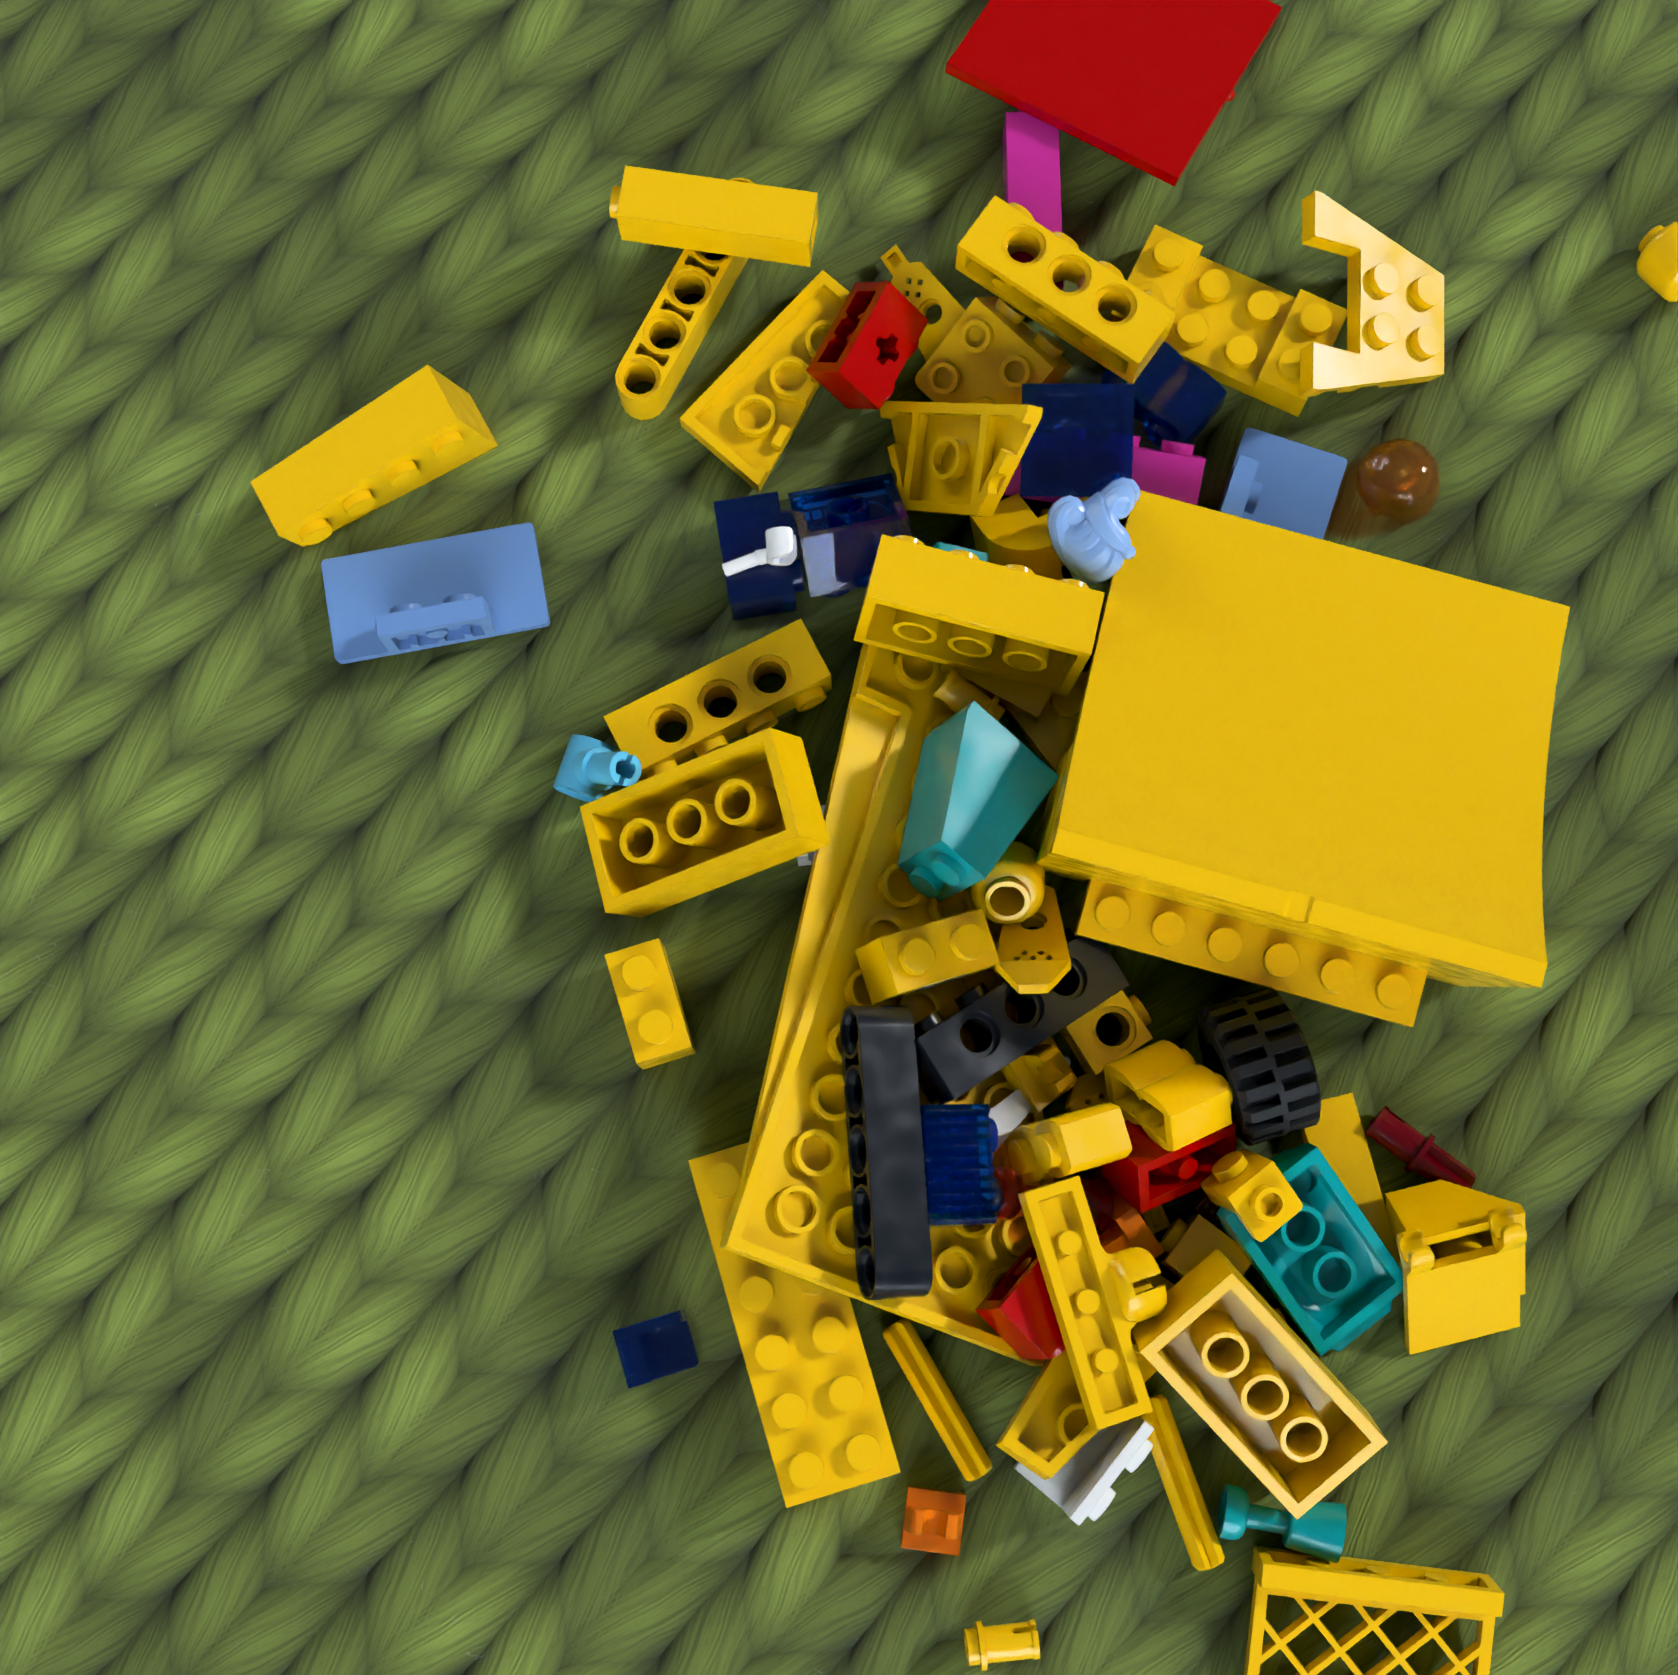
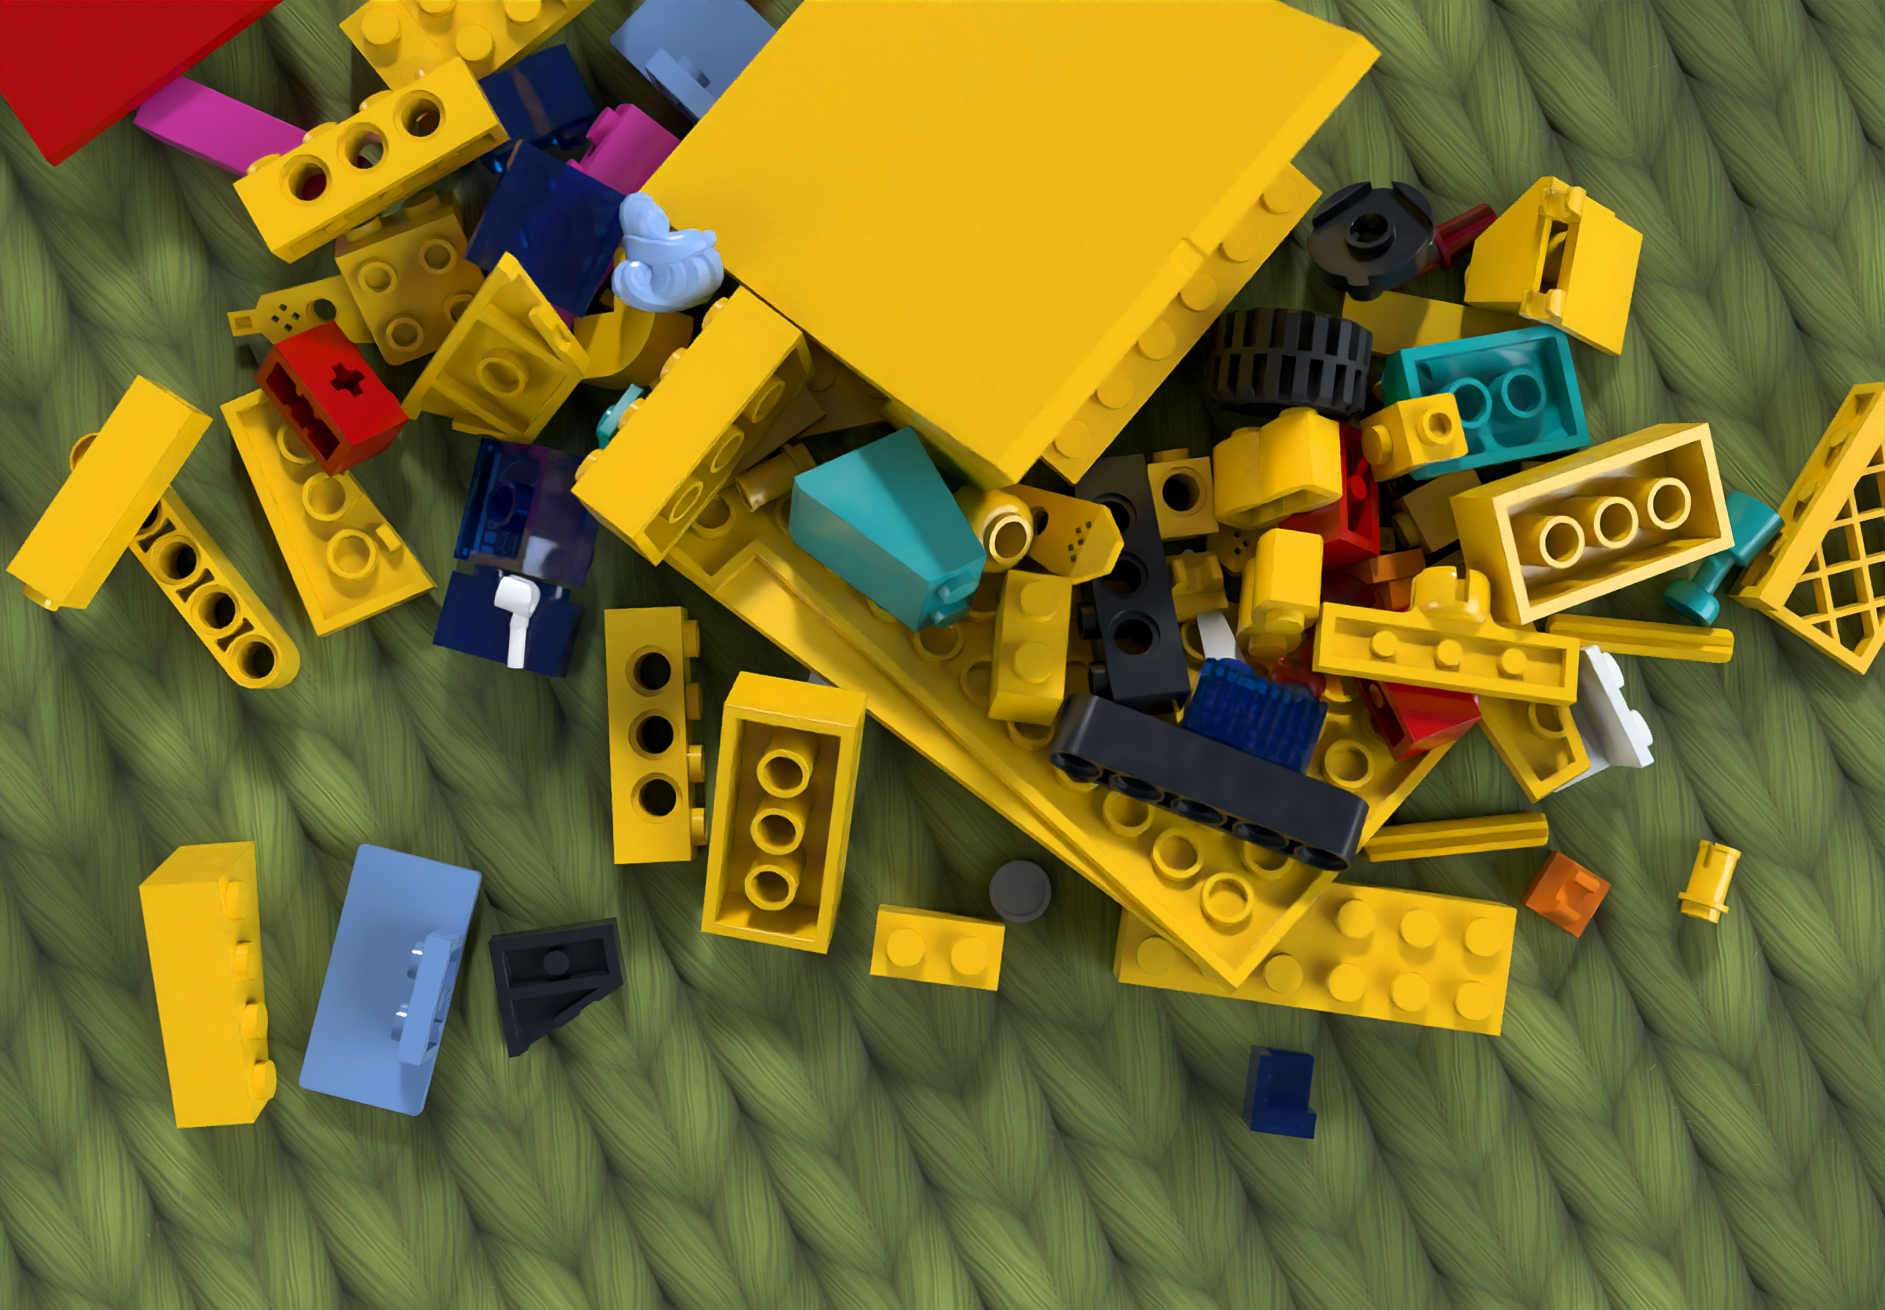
camera: 70 degrees left, 10 degrees up
(492, 714) = (552, 975): none -> black wing
(593, 767) = (664, 896): medium azure pin -> none
(726, 1055) = (1020, 890): none -> flat silver piece
(1407, 1118) = (1376, 266): none -> black plate

